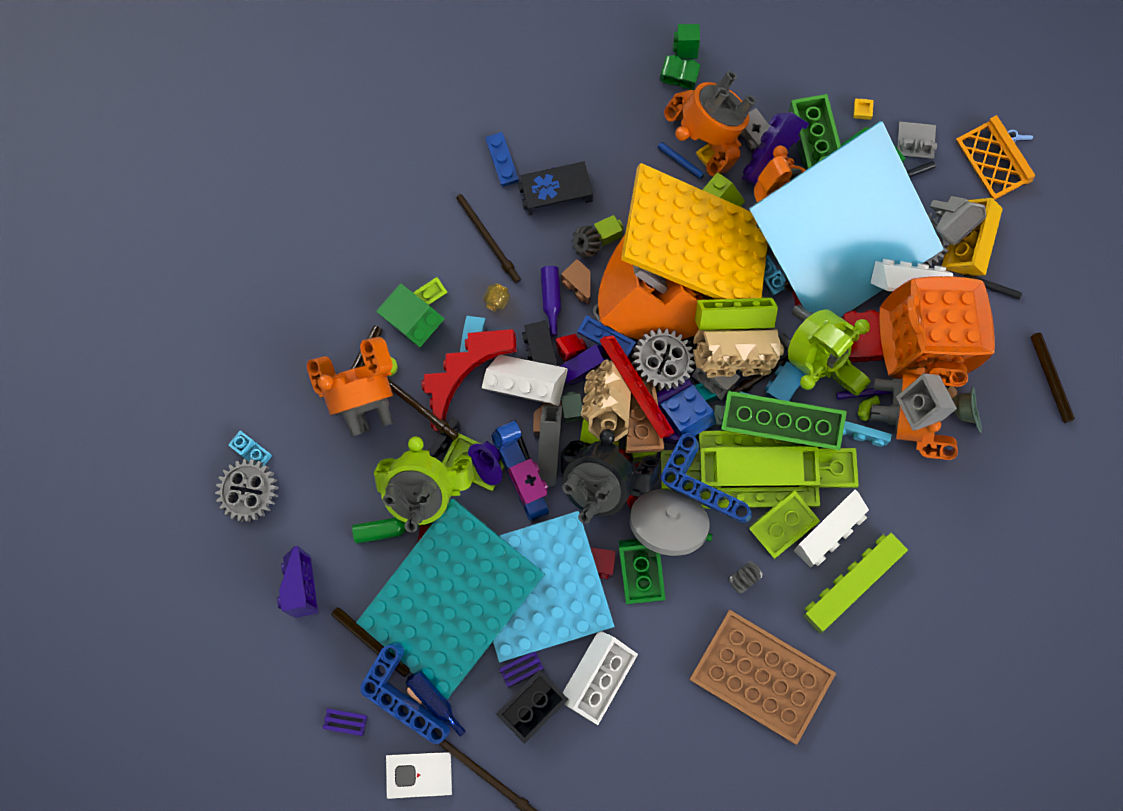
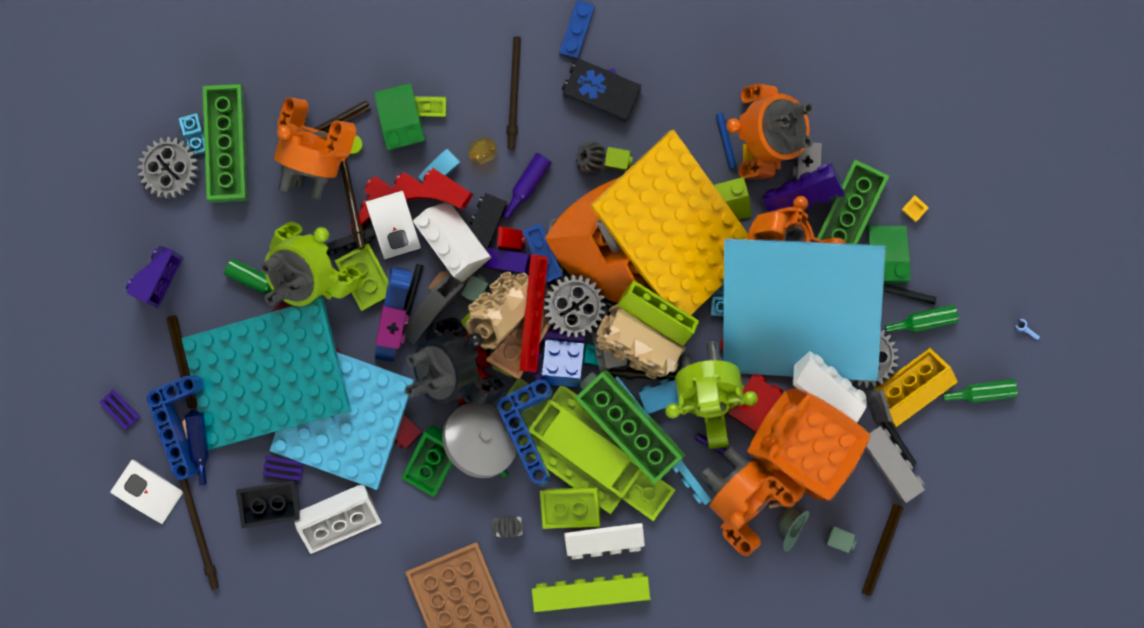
camera: 30 degrees right, 10 degrees up
(281, 437) = (225, 143): none -> bright green brick
(468, 401) = (393, 224): none -> white slope
(486, 462) = (372, 285): dark purple piece -> none
(578, 280) = (561, 186): medium nougat slope -> none
(680, 72) = (785, 61): green brick -> none
(687, 41) = (810, 39): green brick -> none
(865, 407) = (713, 461): lime arm -> none
(917, 140) = (938, 269): light grey hinge -> none
(926, 401) = (743, 498): light grey slope -> none
(942, 178) = (926, 319): none -> green piece
(957, 218) = (906, 365): light grey piece -> none
(961, 265) = (878, 406): none -> flat silver piece
(1010, 152) = (1006, 336): light orange fence -> none
(1015, 392) = (841, 540): none -> sand green brick
(1016, 308) = (893, 466): none -> light grey brick
(1029, 201) = (985, 391): none -> green piece

